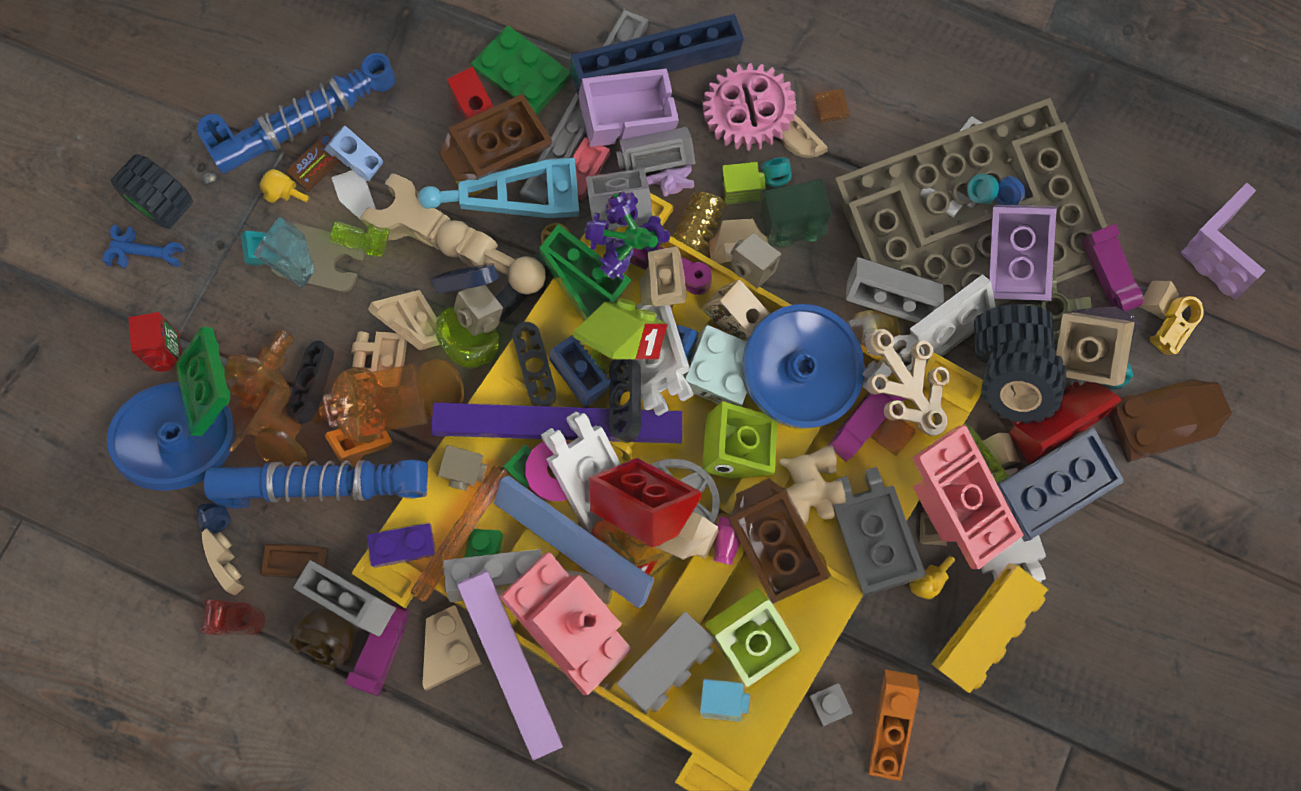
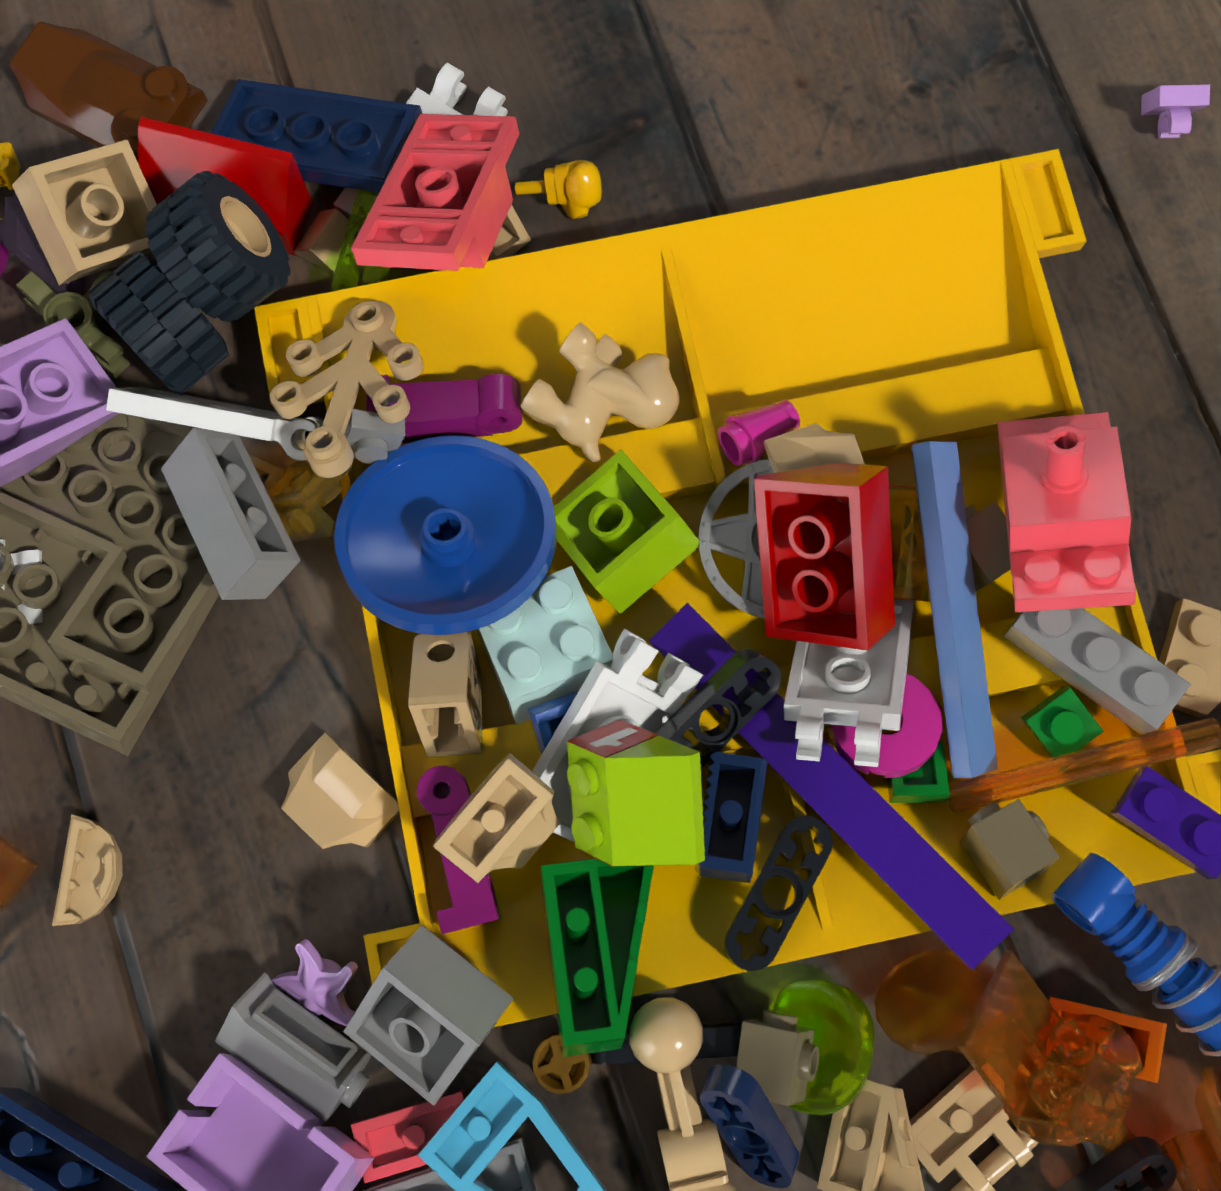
camera: 140 degrees left, 5 degrees up
(509, 664) = (1169, 546): lavender tile -> none
(619, 244) = (505, 921): dark purple plant -> none
(666, 664) = (976, 364): light grey brick -> none
(697, 218) = (352, 882): clear yellow piece -> none
(724, 700) = (947, 264): medium azure brick -> none
(742, 182) = (234, 879): lime brick -> none
(752, 637) = (844, 302): lime slope -> none
(754, 260) = (349, 737): dark tan brick -> none
(775, 100) = (138, 1012): bright pink gear -> none
(776, 168) = (172, 851): teal tile -> none
(777, 541) = (708, 363): reddish brown slope -> none
(795, 213) = (219, 753): clear green brick -> none
(830, 705) = (816, 172): light grey plate -> none
(877, 536) = (580, 265): dark grey tile -> none
(893, 435) = (437, 357): clear orange plate -> none
(893, 724) = (767, 90): orange slope -> none
(990, 627) = (567, 68): yellow brick -> none

